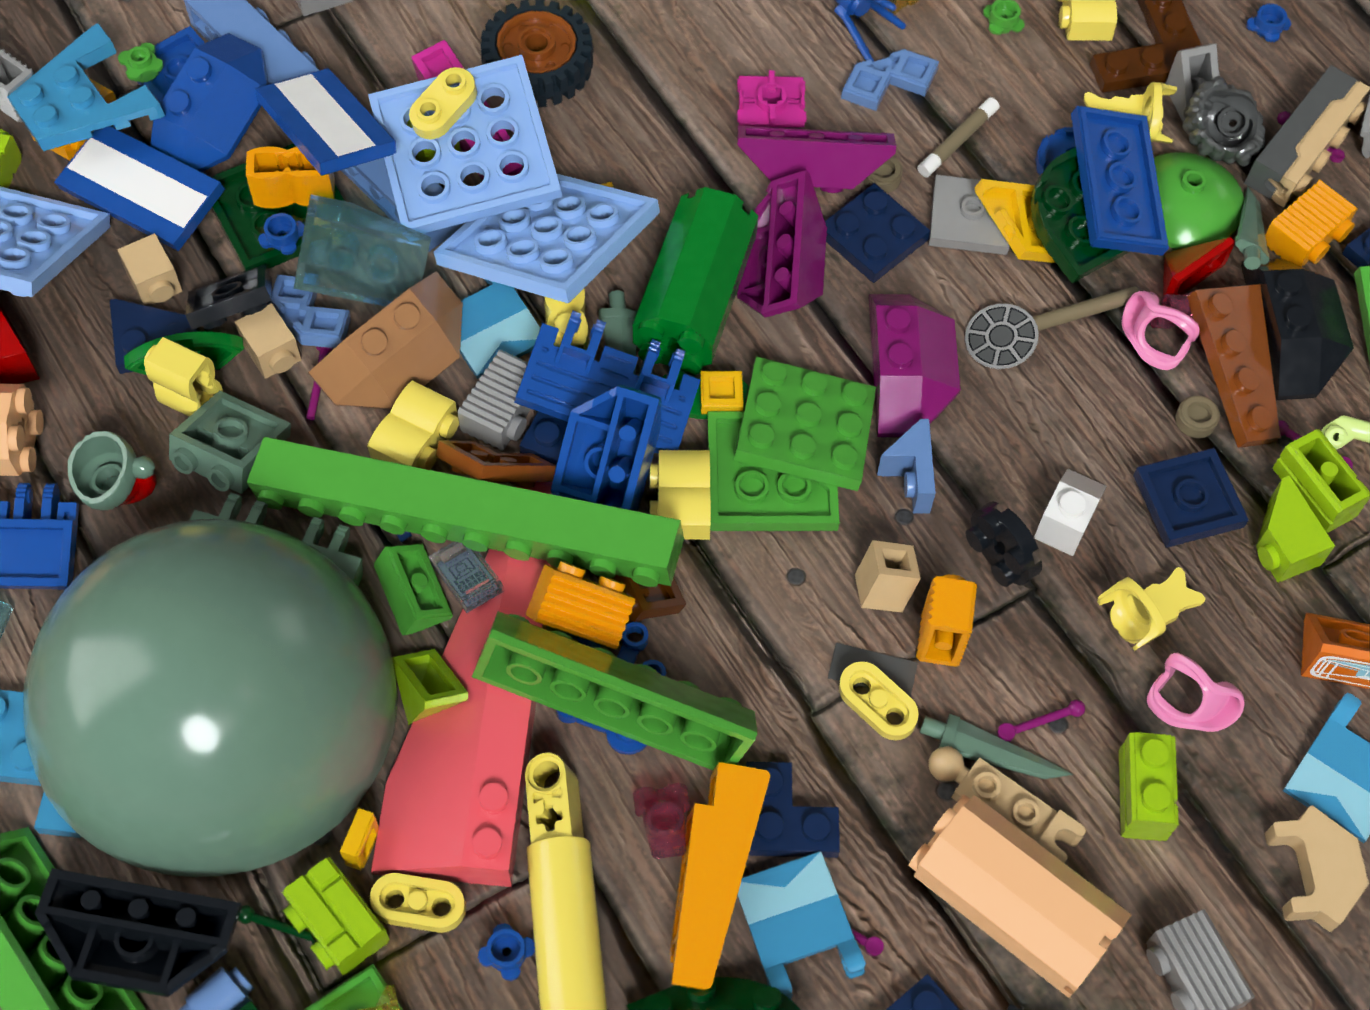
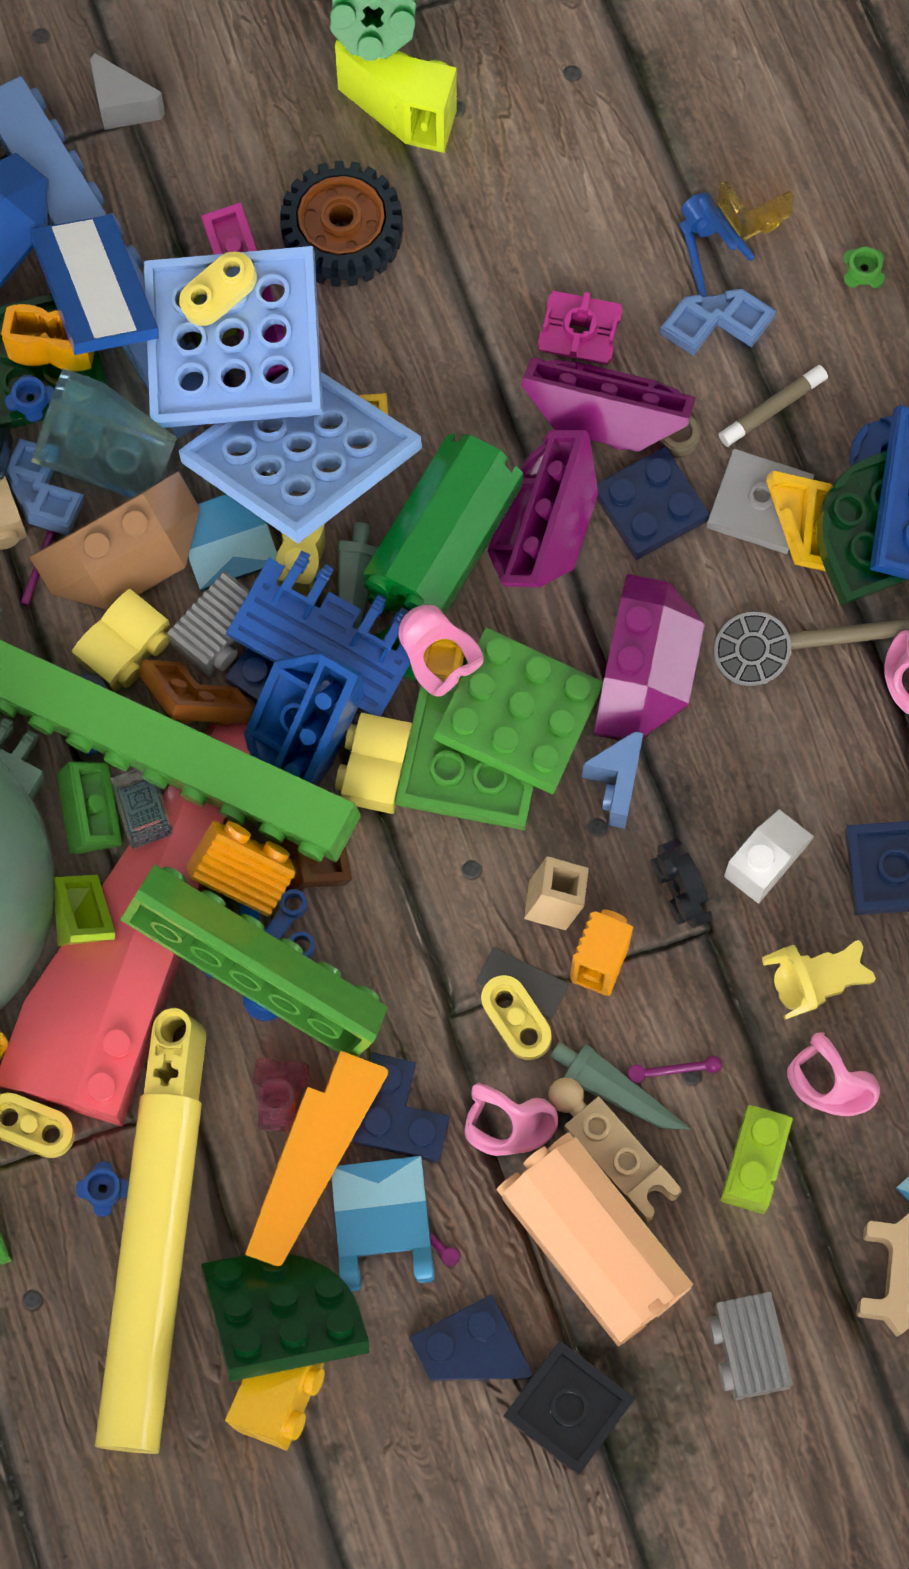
camera: 15 degrees right, 10 degrees up
(700, 361) = (422, 628): none -> bright pink piece
(924, 797) = (532, 1123): none -> bright pink piece

